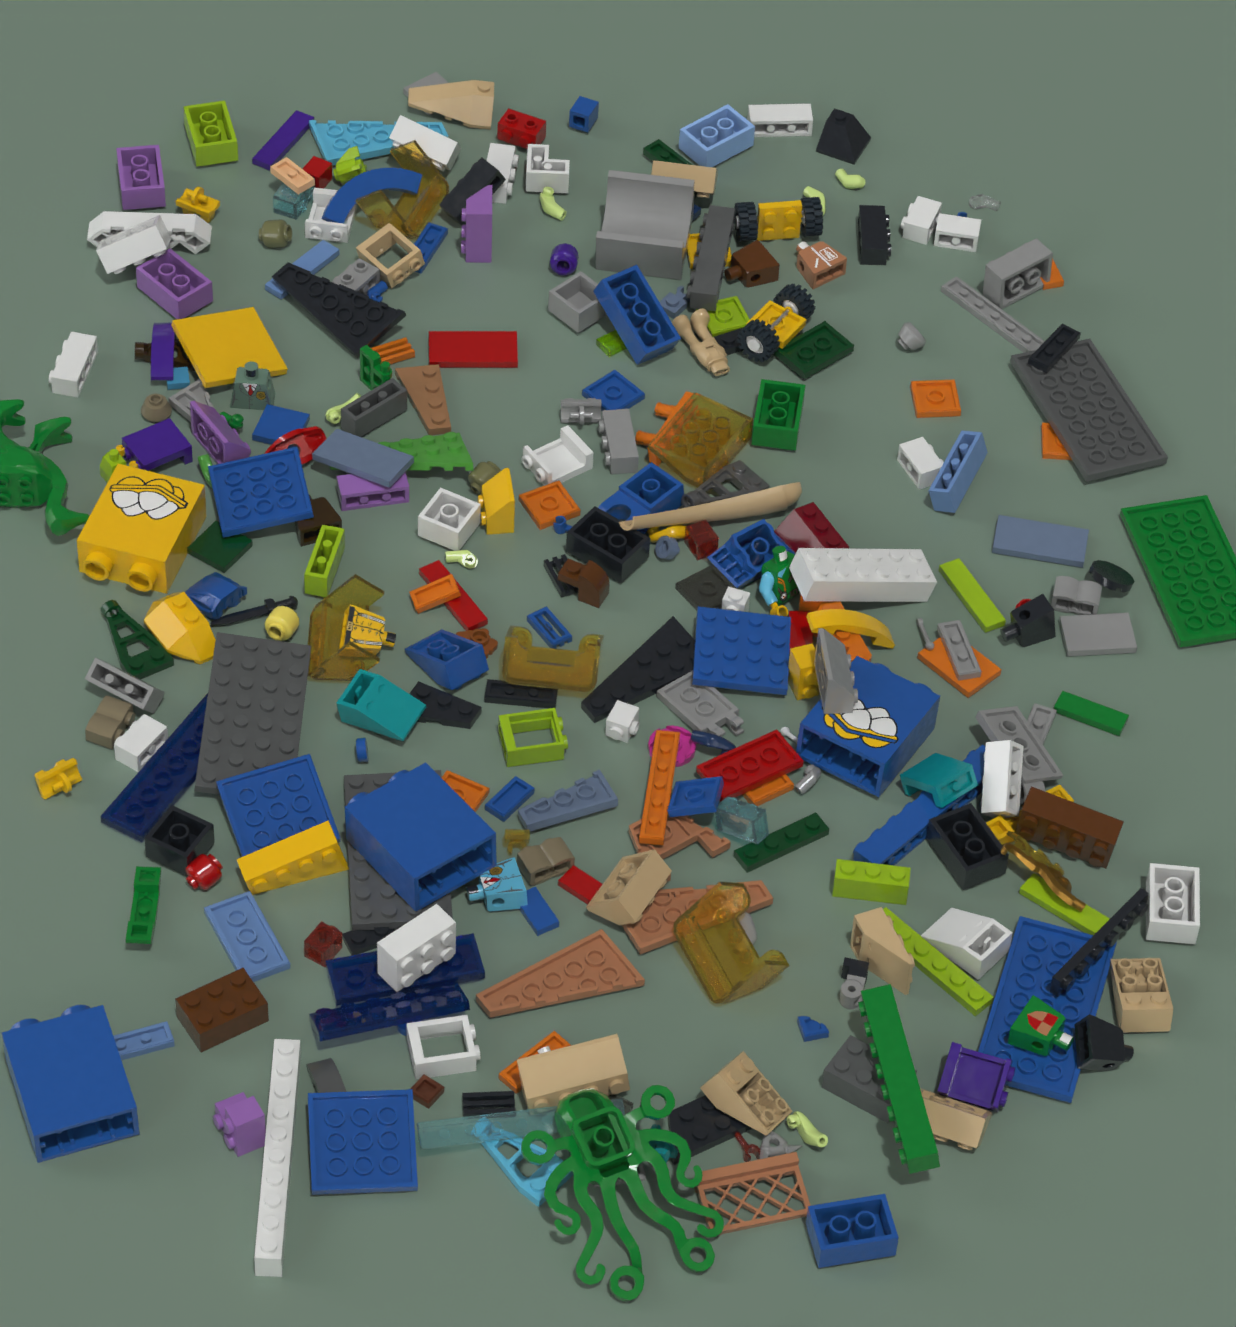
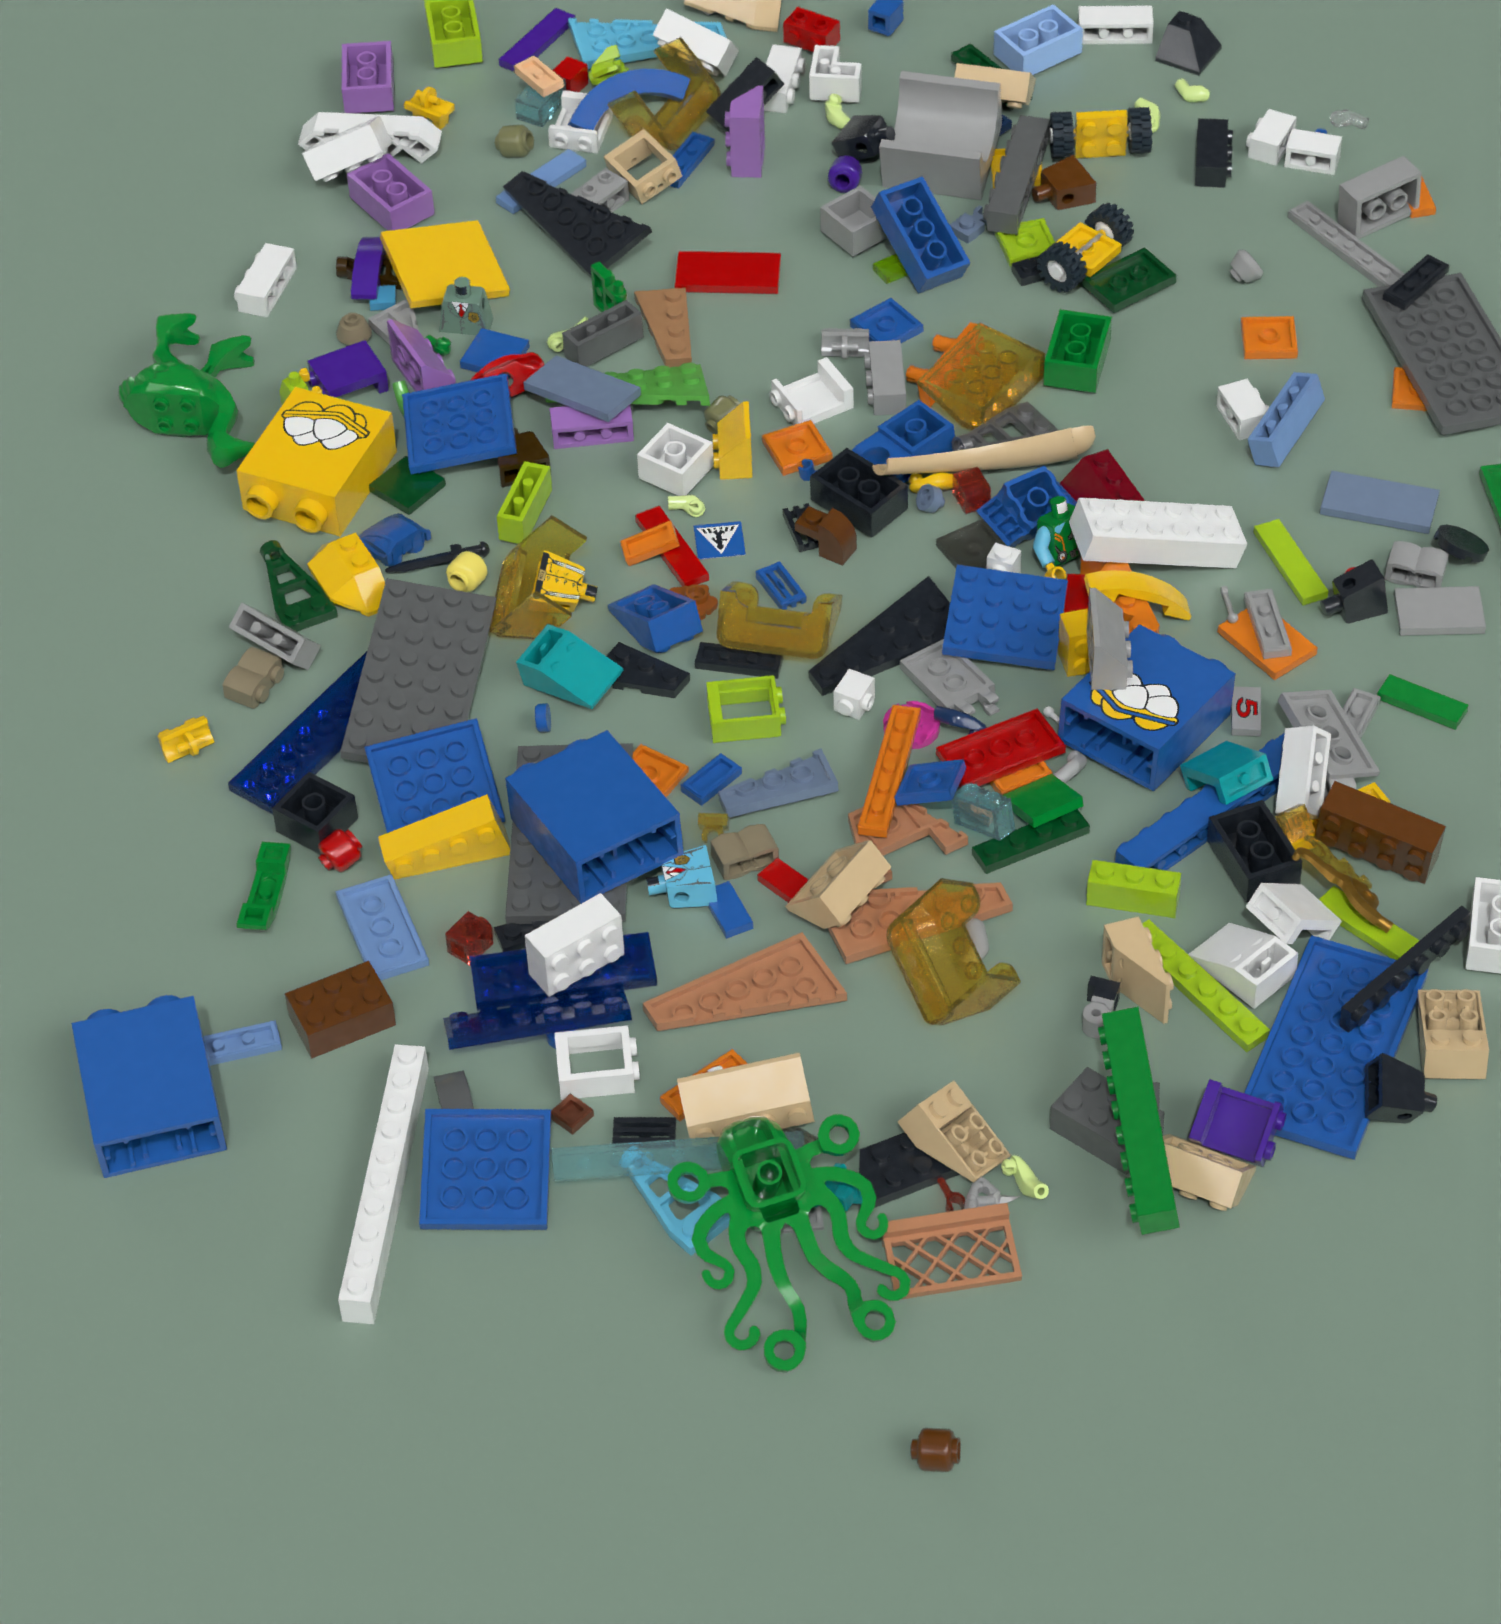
camera: 10 degrees right, 0 degrees up
(140, 742) = (285, 700): white brick -> none
(241, 1123) = (344, 1141): medium lavender brick -> none
(375, 292) = (621, 208): blue arm -> none
(390, 349) = (636, 273): orange tile -> none
(492, 588) = (719, 540): none -> blue sticker
(577, 226) = (862, 136): none -> black torso
(708, 352) = (1004, 279): tan piece -> none
(790, 808) = (1044, 800): none -> green tile
(811, 1029) = (1044, 1060): blue tile -> none
(819, 263) = (1145, 183): nougat torso -> none
(851, 1230) = (1066, 1300): blue brick -> none
(948, 726) = (1246, 711): none -> light grey tile
(1000, 821) = (1295, 822): none -> clear yellow tile
(1003, 896) = (1290, 909): none -> white panel
(1039, 1028) = (1320, 1068): green torso -> none

